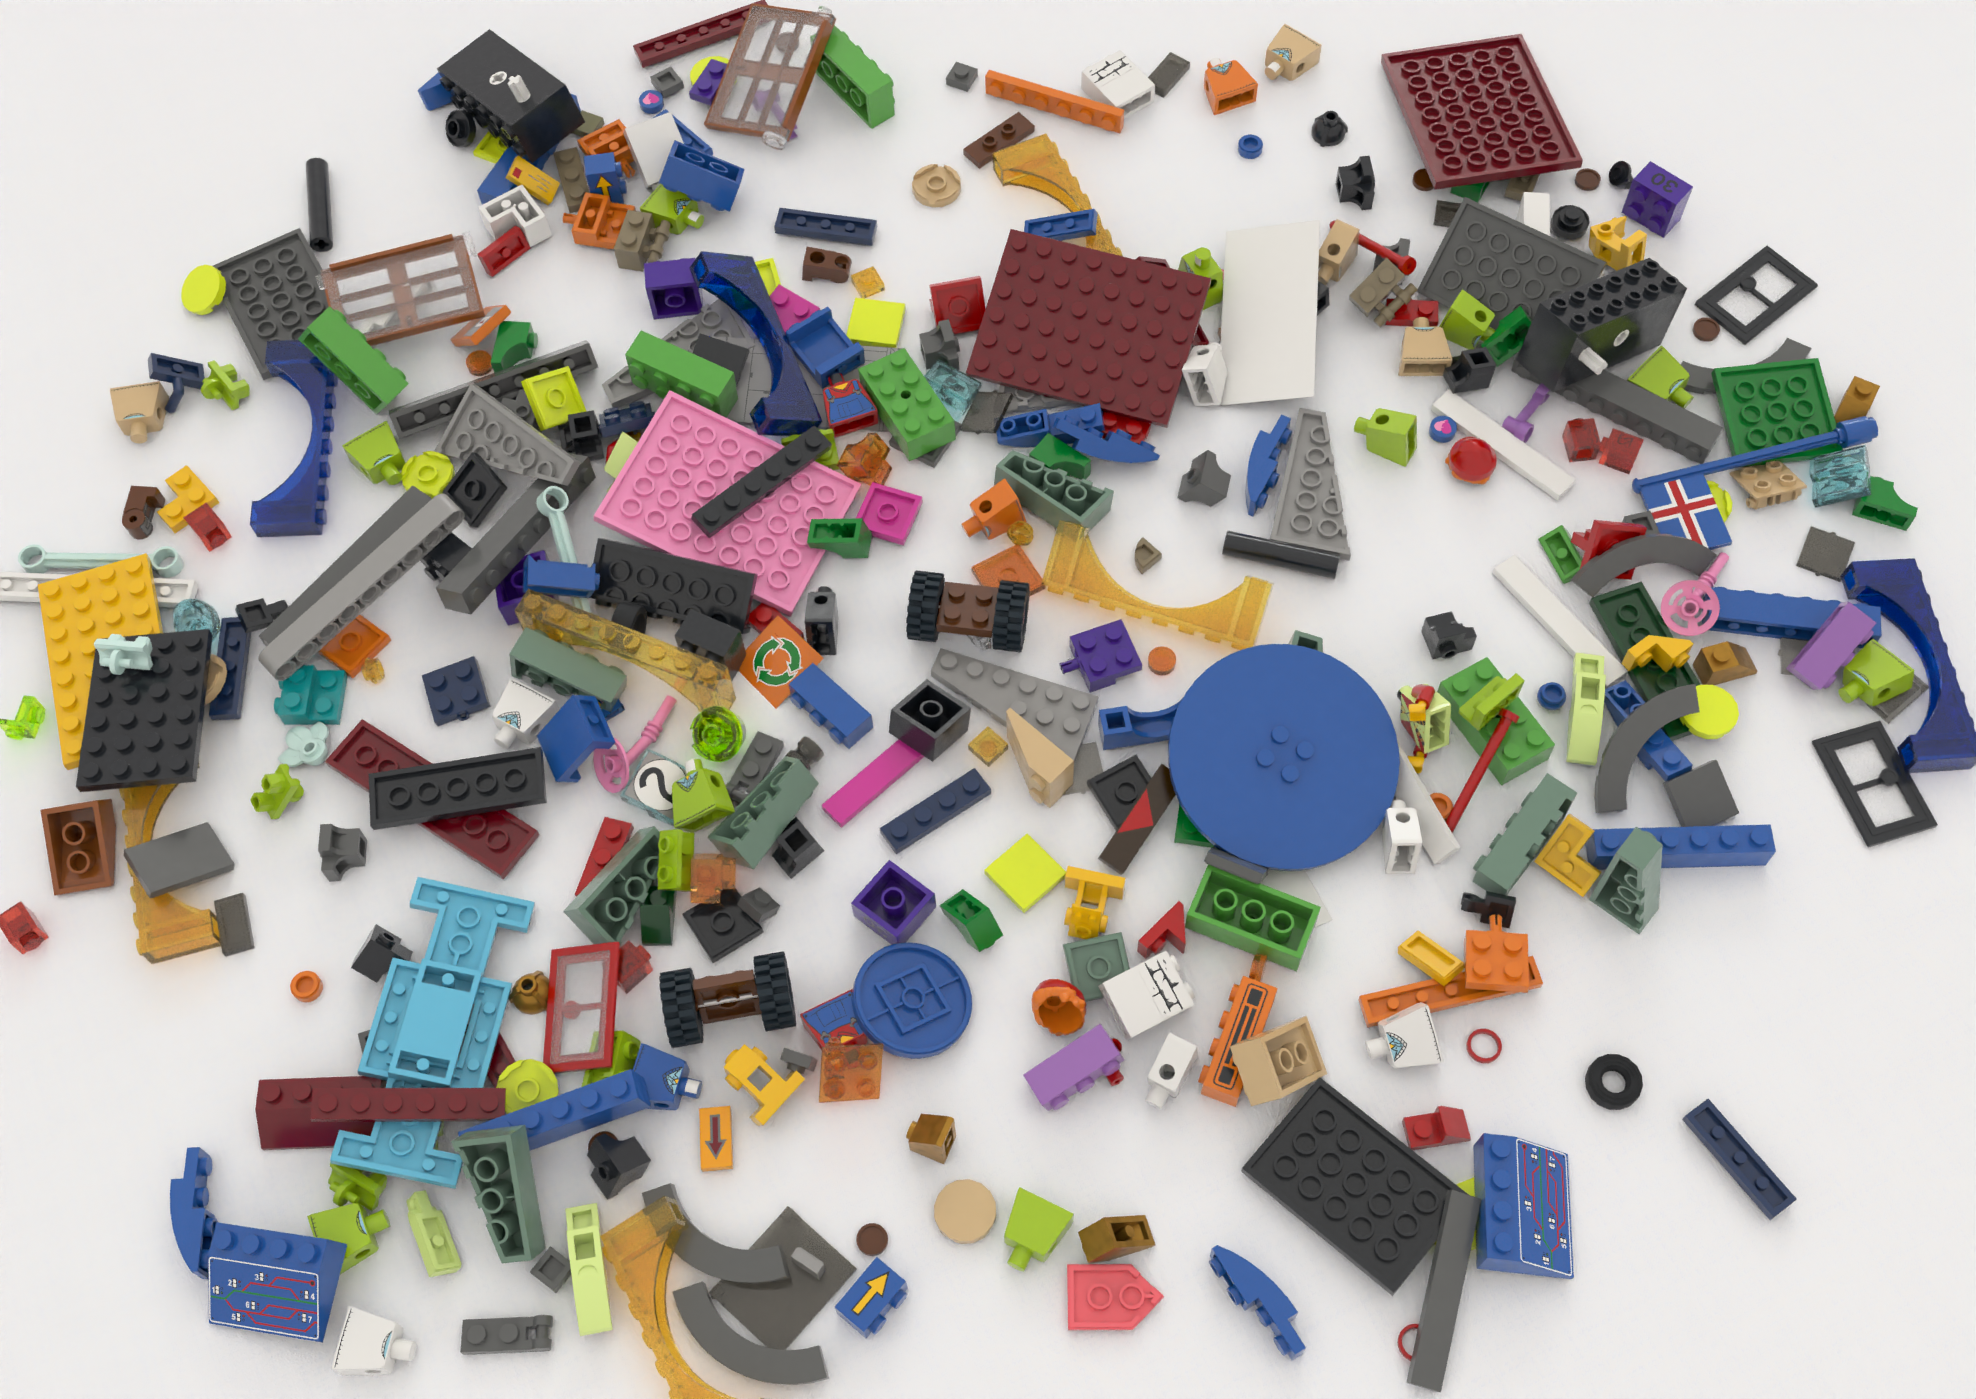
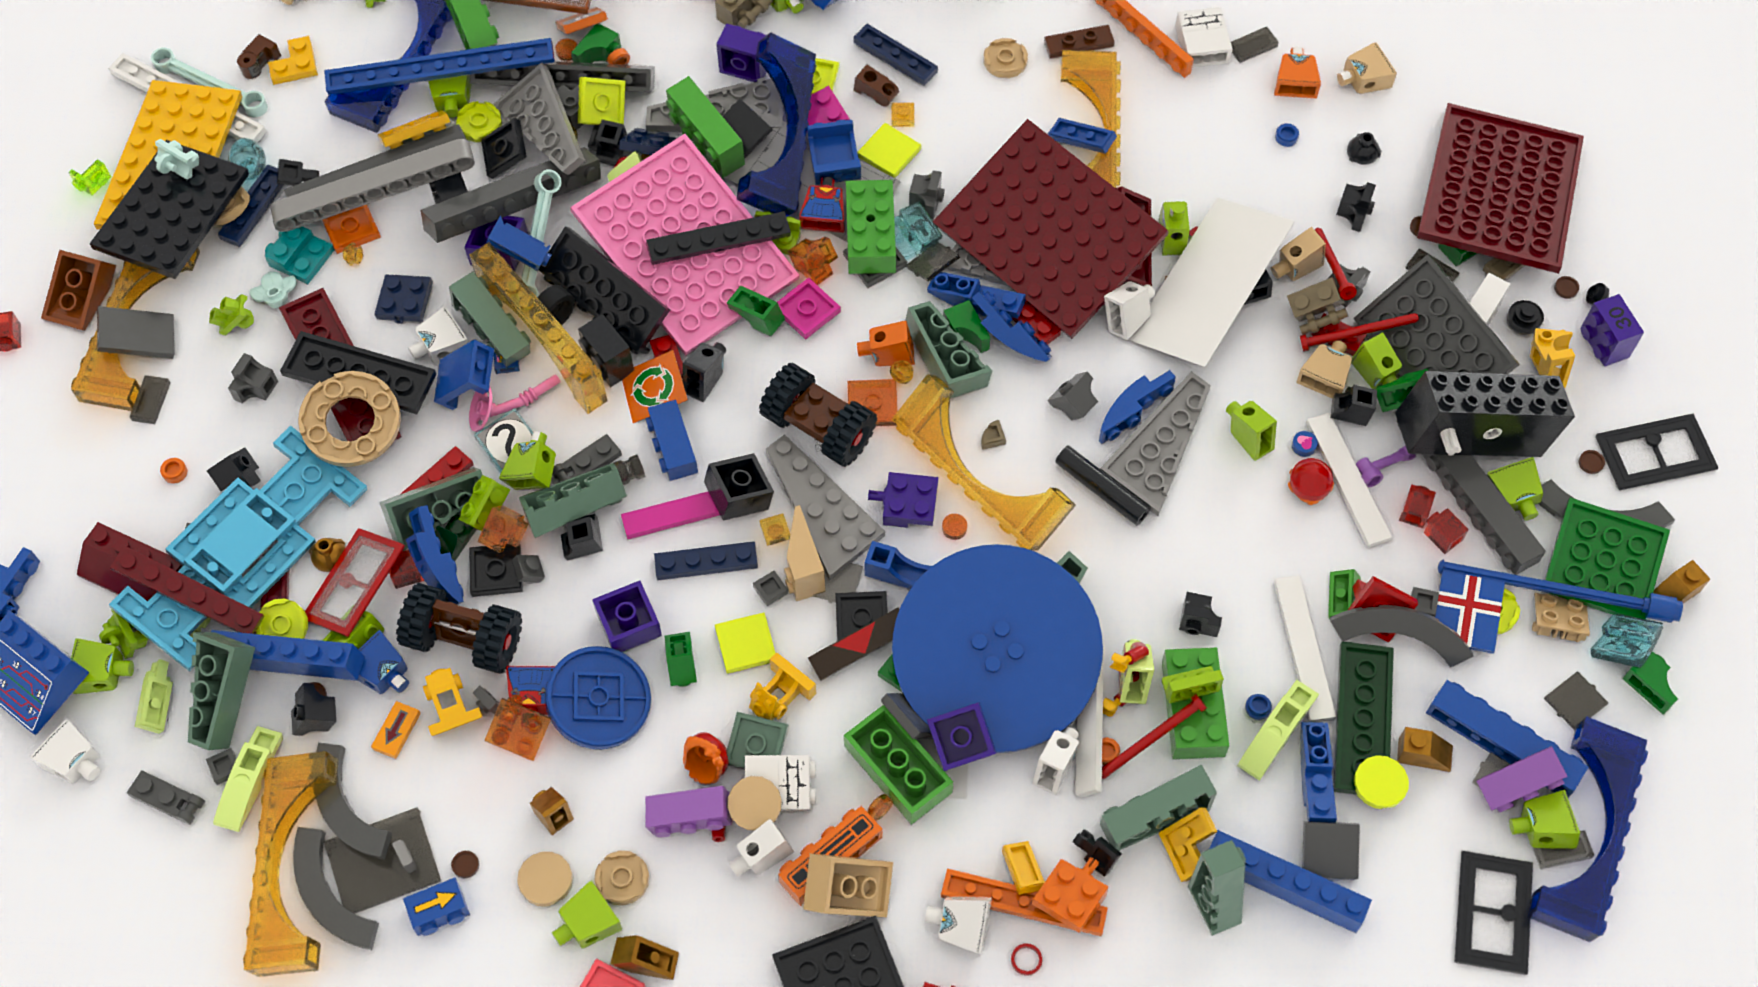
camera: 25 degrees right, 0 degrees up
(207, 527) = (296, 90): clear red brick -> none
(359, 434) = (439, 66): none -> blue plate
(365, 511) = (414, 129): none -> yellow plate
(463, 803) = (340, 387): none -> tan plate
(542, 347) = (619, 56): none -> orange tile
(646, 938) = (435, 568): none -> blue slope
(717, 734) = (573, 421): clear neon green cone -> none
(959, 302) = (959, 162): red bracket -> none
(1019, 806) = (770, 588): none -> dark grey plate
(1043, 1168) = (622, 878): none -> tan tile
(1139, 1025) = (754, 802): none -> tan tile
(1170, 928) = (829, 738): red slope -> none
(1304, 858) = (961, 736): none -> dark purple brick
(1388, 332) = (1357, 330): none -> red bar
(1629, 739) = (1299, 770): dark grey tile -> none
(1663, 650) = (1374, 715): yellow slope -> none
(1694, 600) = (1426, 686): bright pink dish -> none

